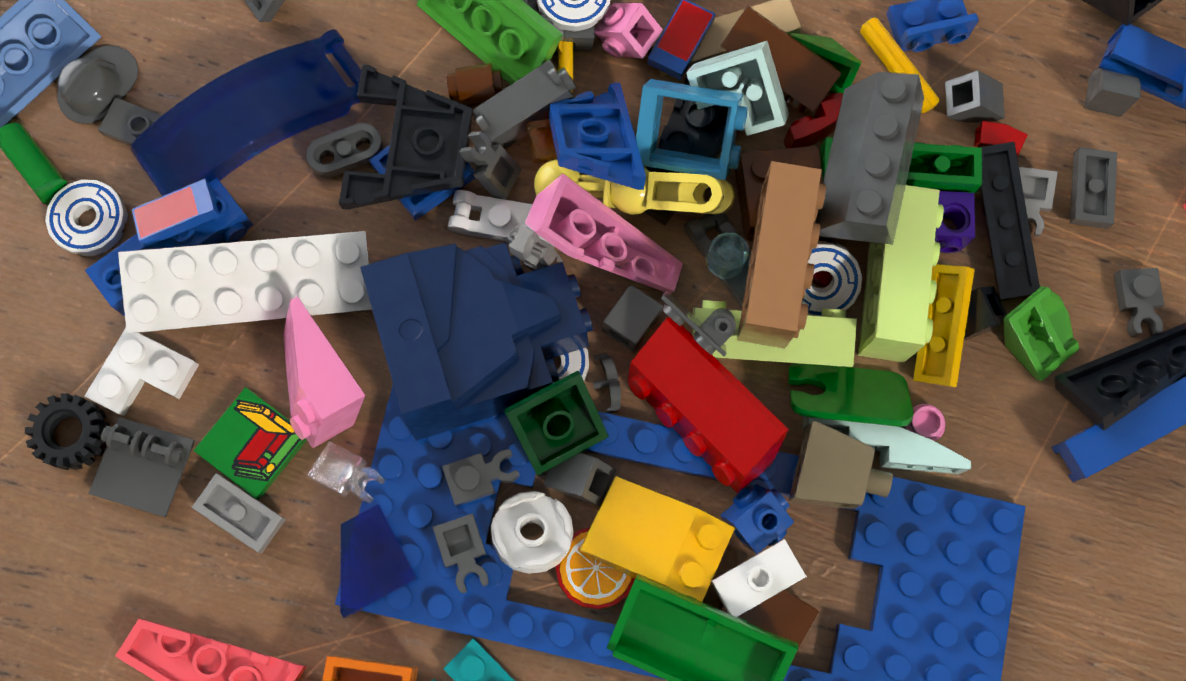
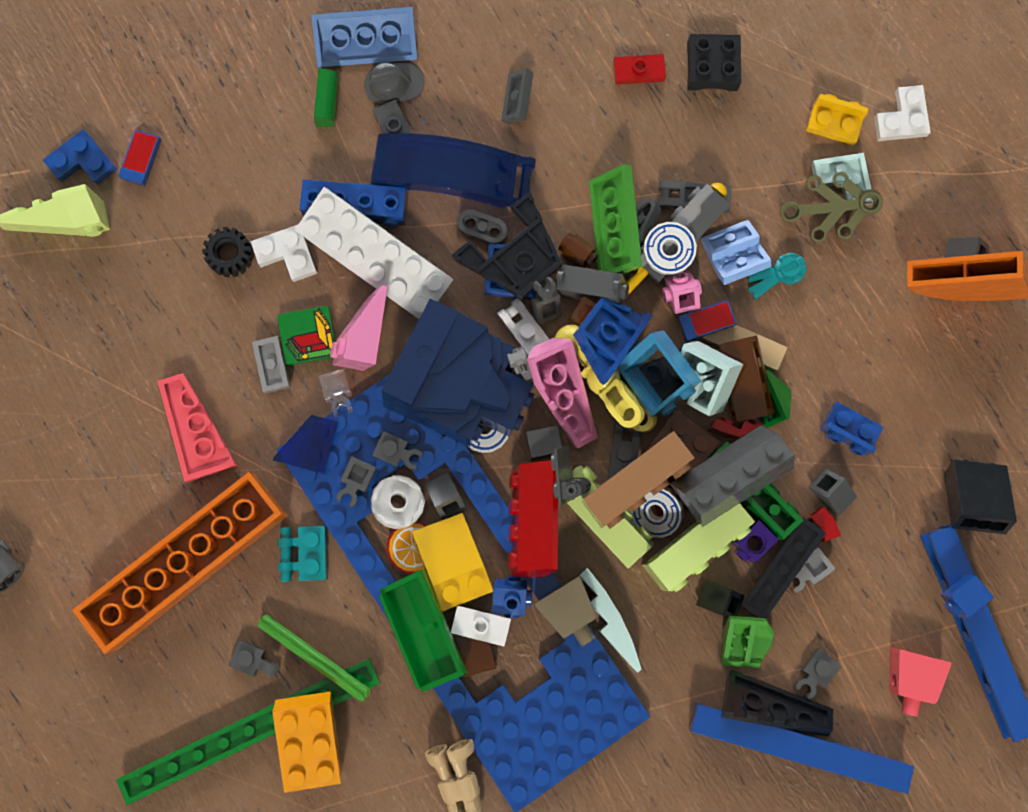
camera: 45 degrees right, 5 degrees up
(71, 202) = (328, 136): white tile -> none
(141, 466) = (247, 300): dark grey hinge -> none
(175, 212) = (369, 189): tile -> none
(556, 423) = (455, 461): dark green slope -> none
(611, 381) = (505, 464): dark grey piece -> none
(730, 247) = (623, 452): clear light blue wheel -> none
(851, 394) = (615, 583): green piece -> none
(895, 58) = (811, 437): yellow axle -> none
(927, 422) = (641, 630): bright pink plate -> none
(941, 357) = (697, 591): yellow plate -> none
(1093, 188) = (849, 594): dark grey plate -> none
(1111, 92) = (911, 554): dark grey brick -> none

